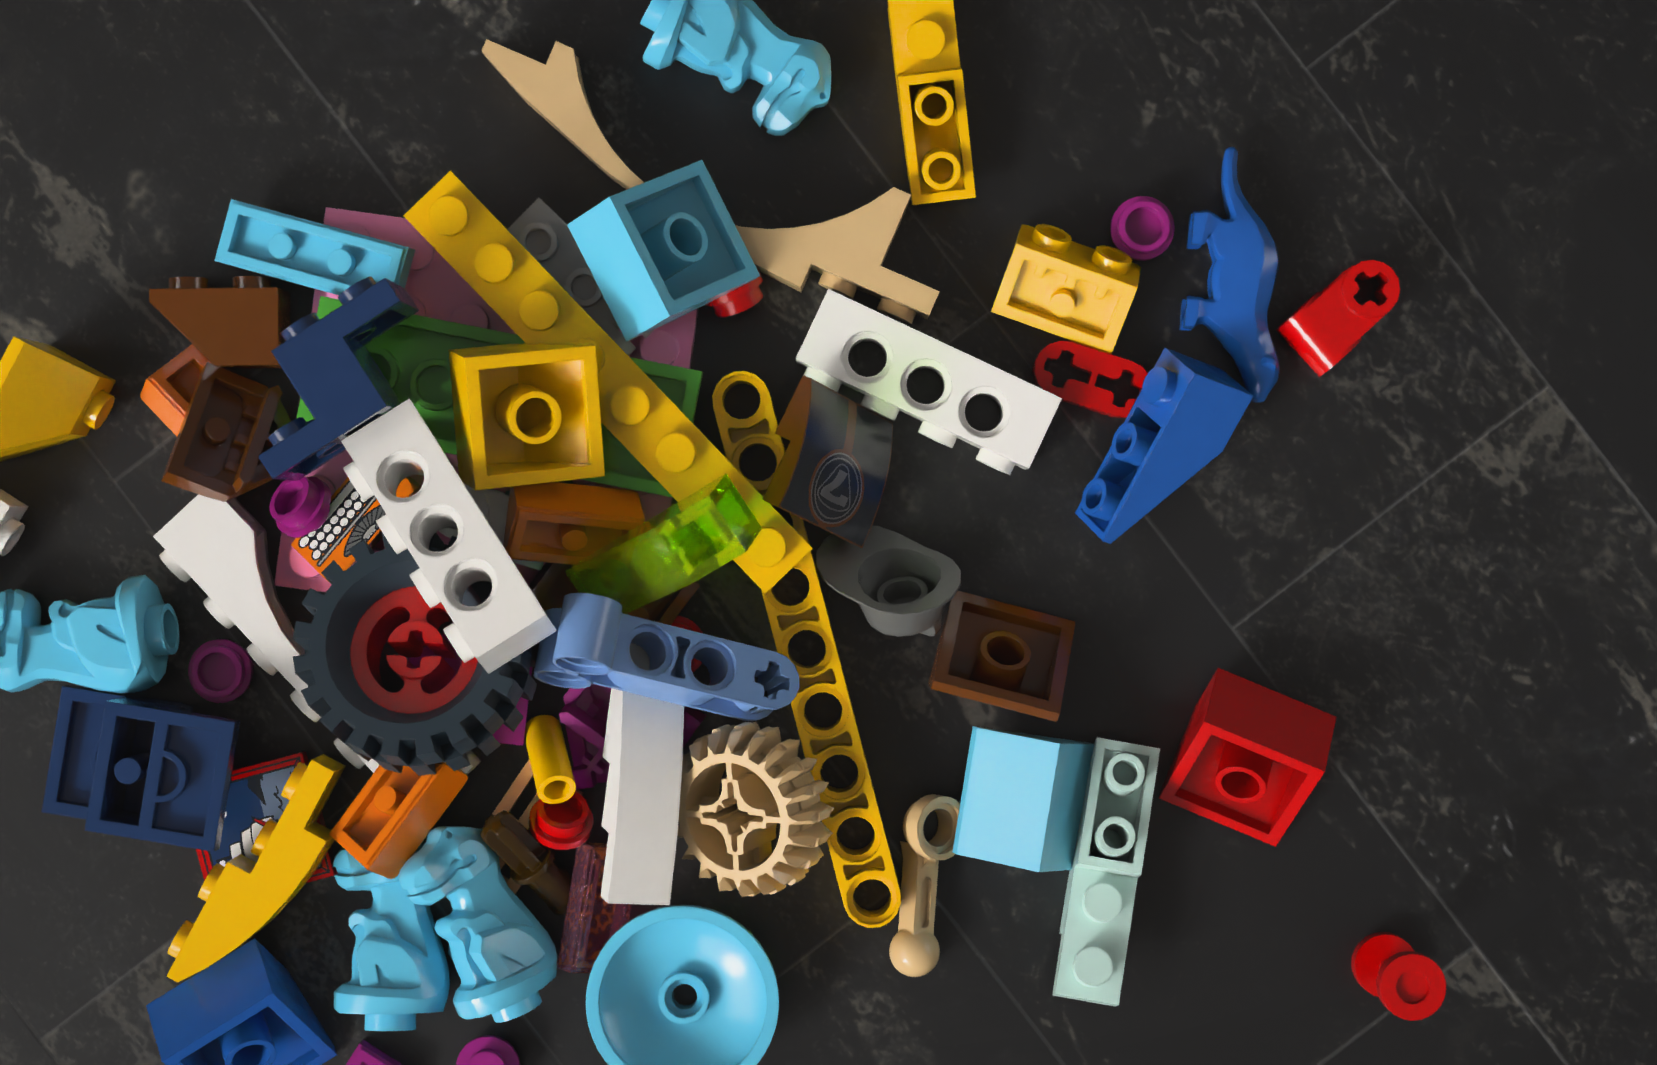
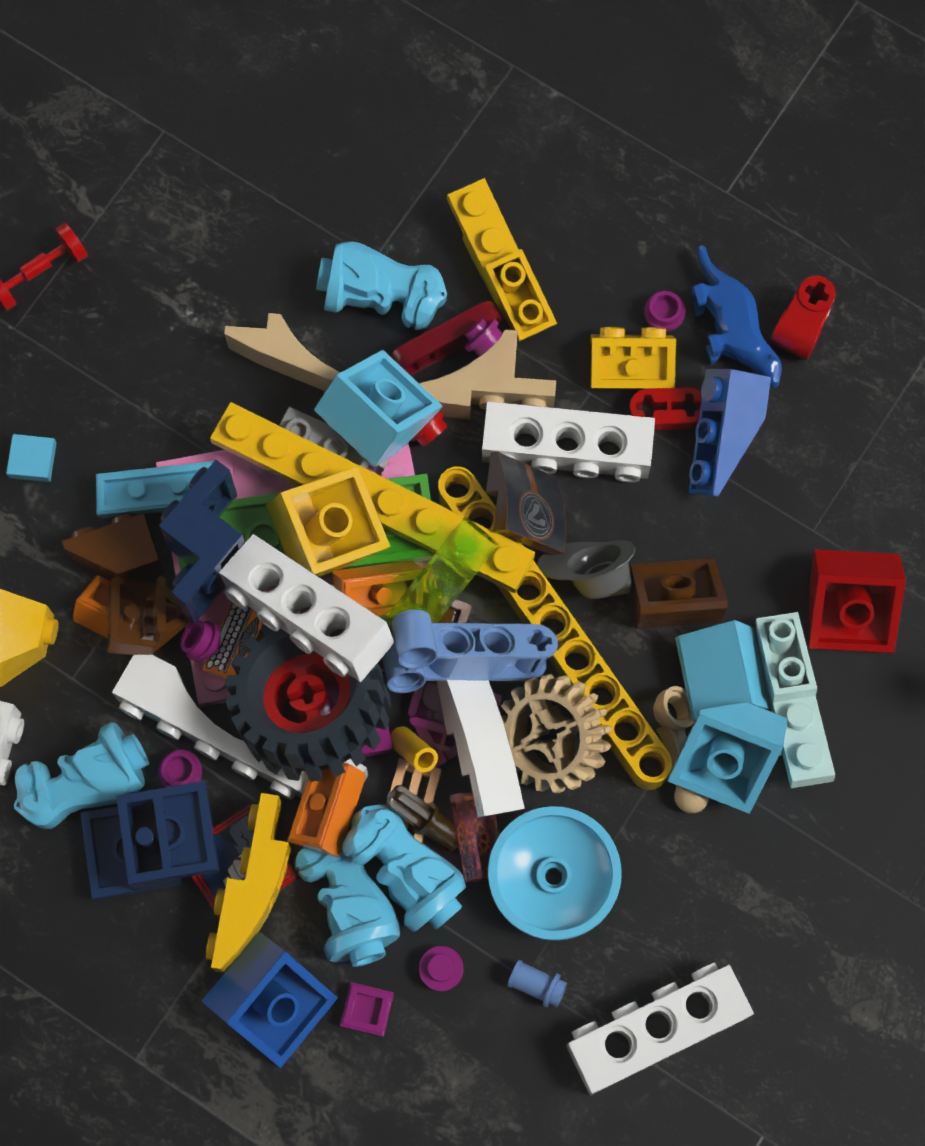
camera: 20 degrees left, 15 degrees down
(151, 135) = (31, 458): none -> medium azure tile
(561, 824) = (435, 784): red plate -> none
(806, 163) = (443, 339): none -> dark red beam
(856, 187) = (482, 336): none -> magenta plate
(986, 930) = (730, 753): none -> medium azure slope

